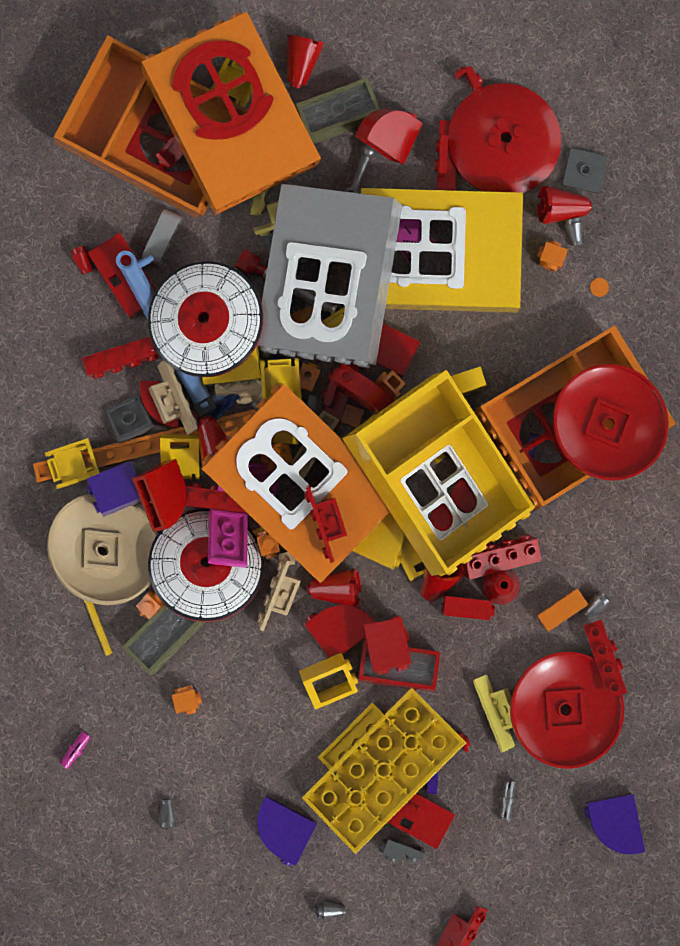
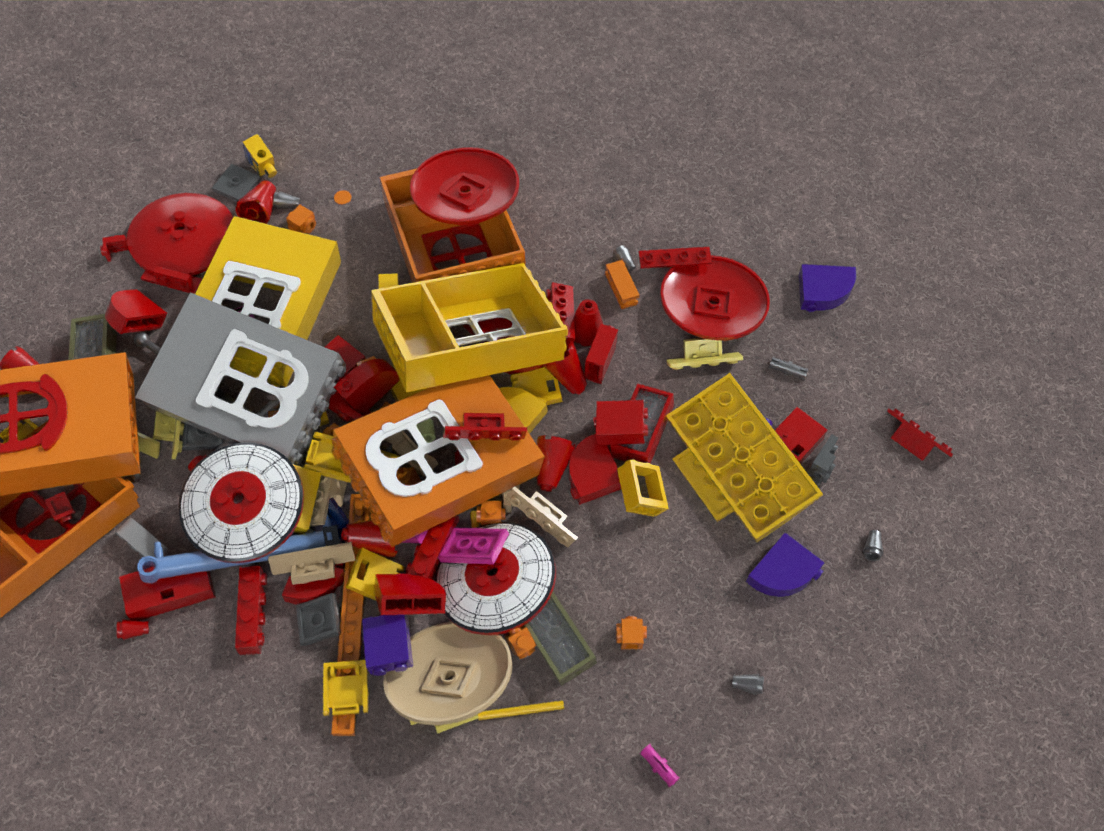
camera: 80 degrees left, 25 degrees down
(624, 180) = (259, 156): none -> yellow torso

